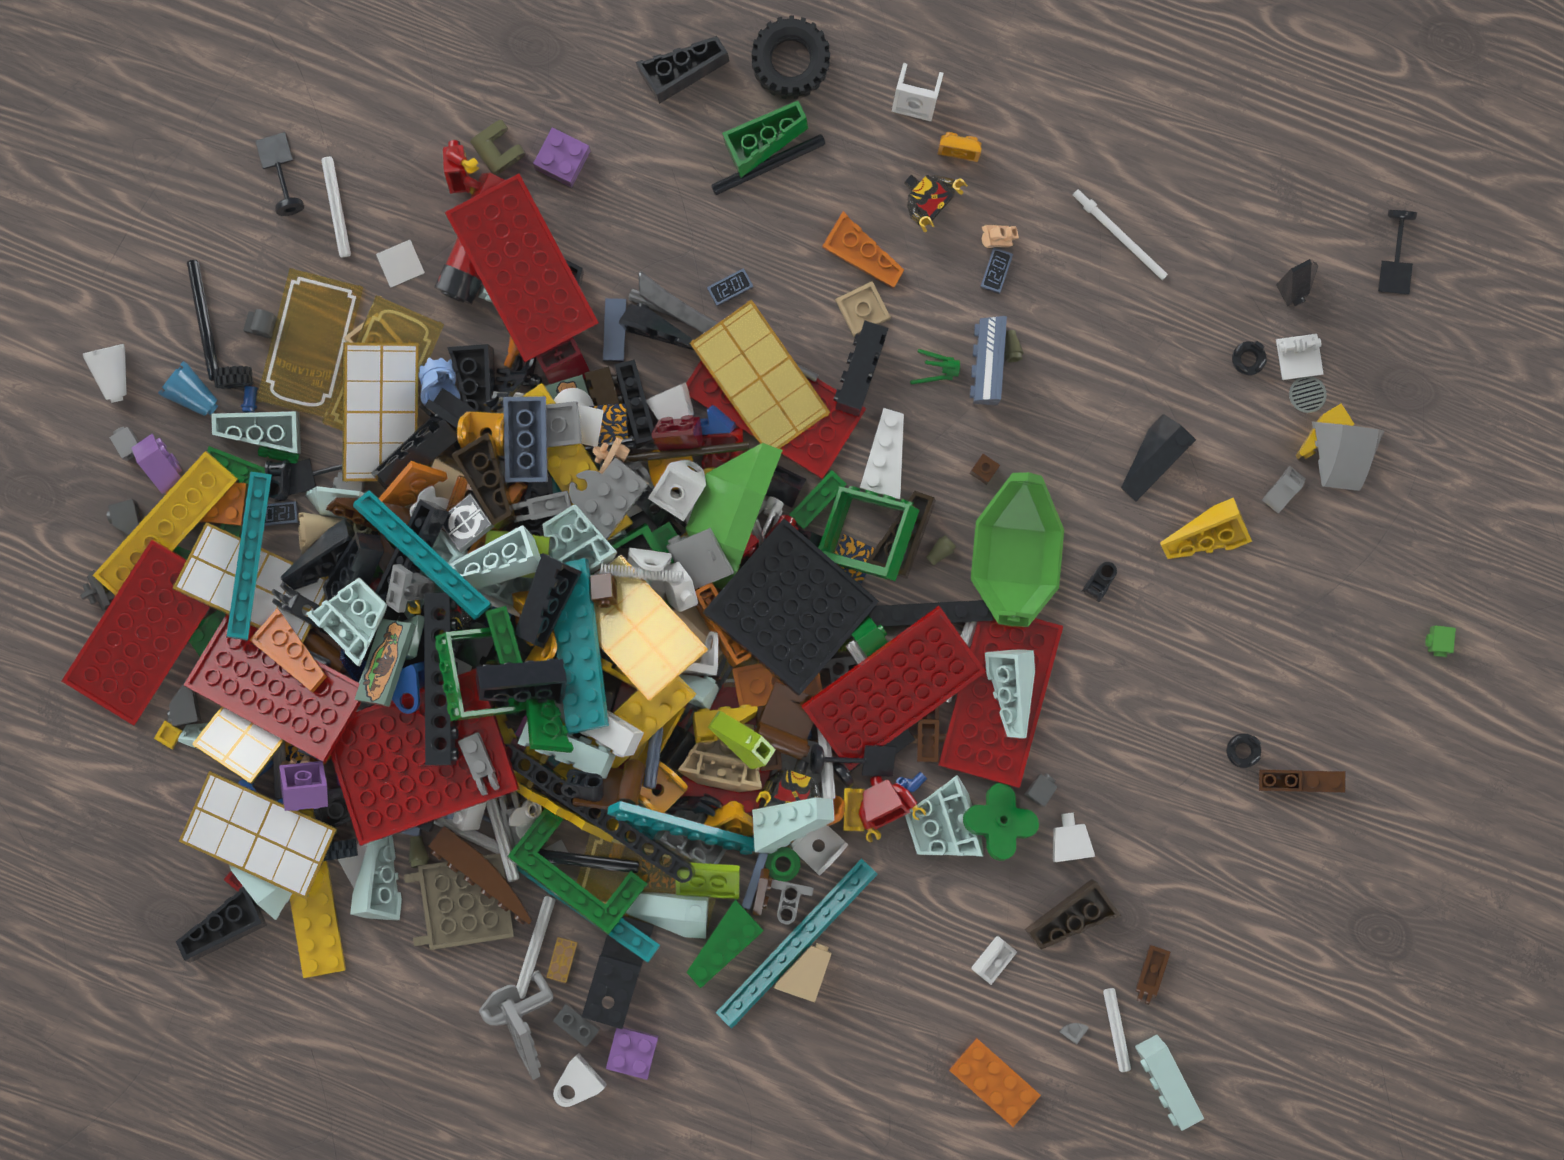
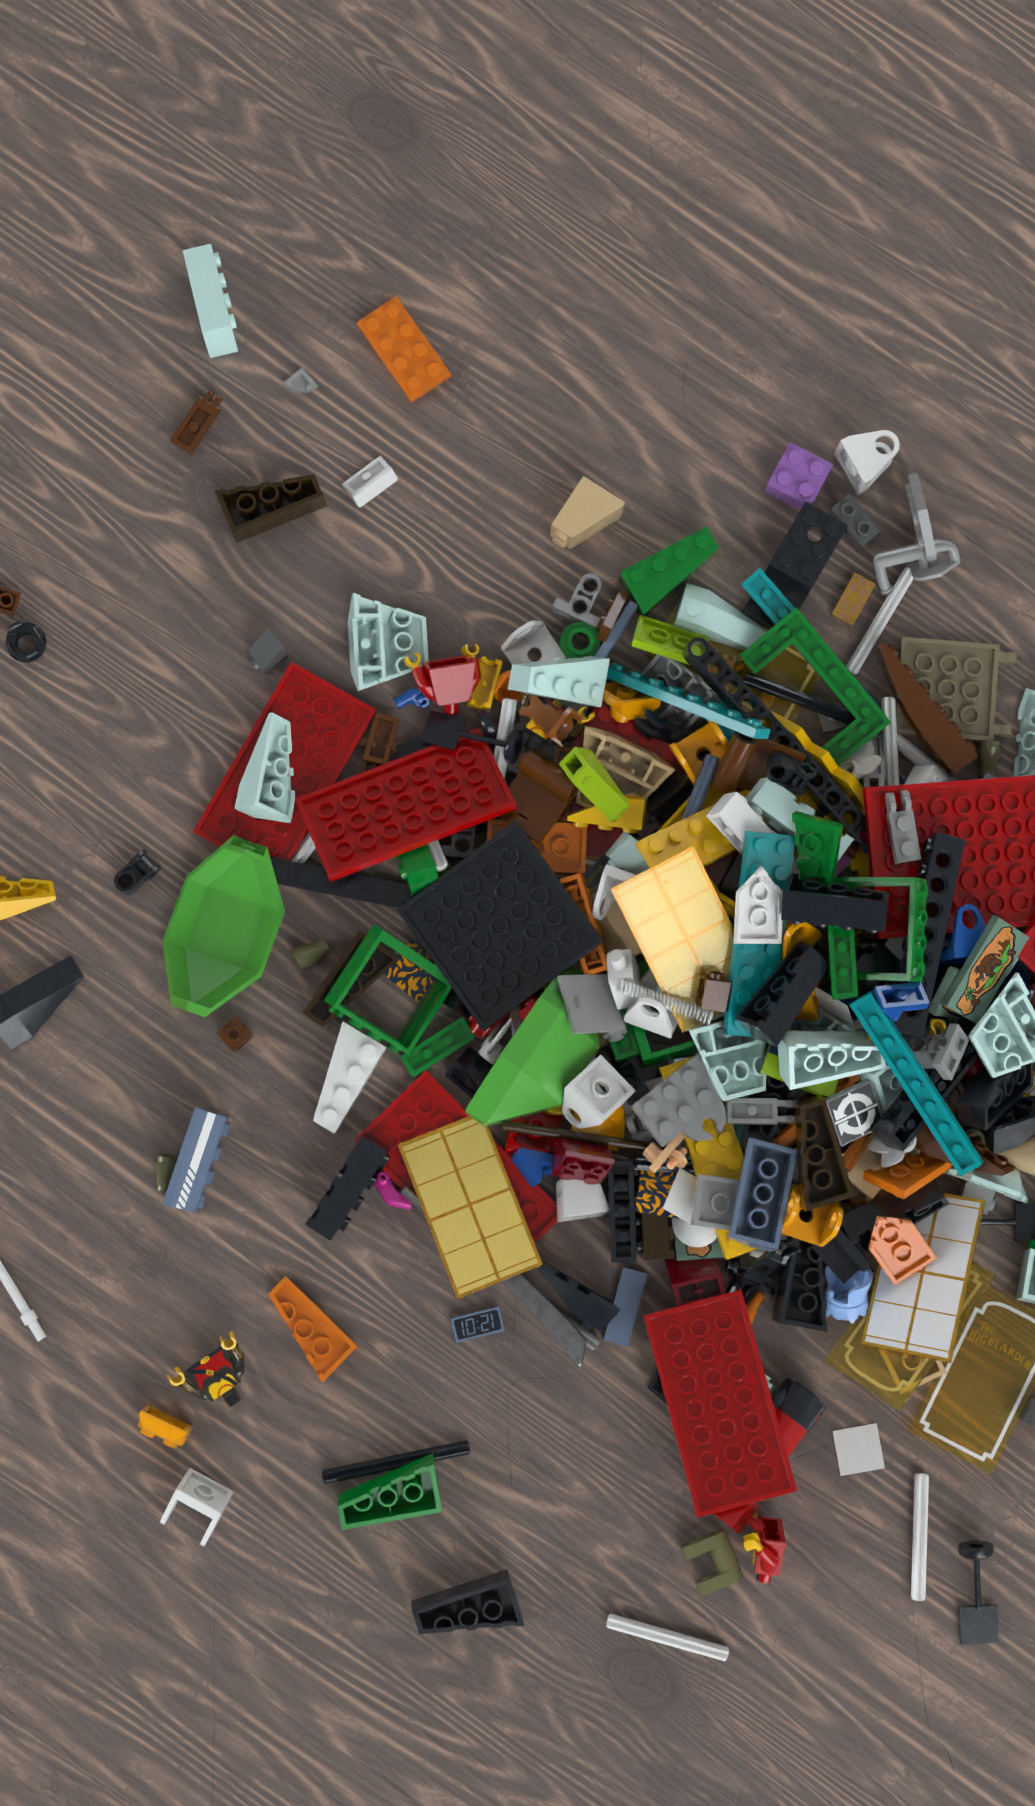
camera: 170 degrees left, 0 degrees up
(404, 424) = (899, 1248): none -> orange tile
(450, 618) = (900, 998): none -> blue slope
(507, 81) = (667, 1637): none -> white axle
(561, 157) = (639, 1530): medium lavender brick -> none
(582, 661) = (758, 911): none -> white tile
(787, 784) = (554, 723): none -> dark orange hair
(790, 30) = (328, 1620): black tyre -> none
(796, 943) = (585, 552): teal plate -> none
(827, 373) = (389, 1193): none -> dark pink arm
(862, 305) = (328, 1261): tan tile -> none
(949, 367) = (244, 1165): green plant -> none
(987, 821) = (337, 634): green plant -> none
(996, 270) = (159, 1267): tile -> none
(999, 236) = (146, 1306): light nougat hips -> none
(1071, 840) = (248, 588): white torso -> none
(1117, 1030) = (252, 372): white axle -> none

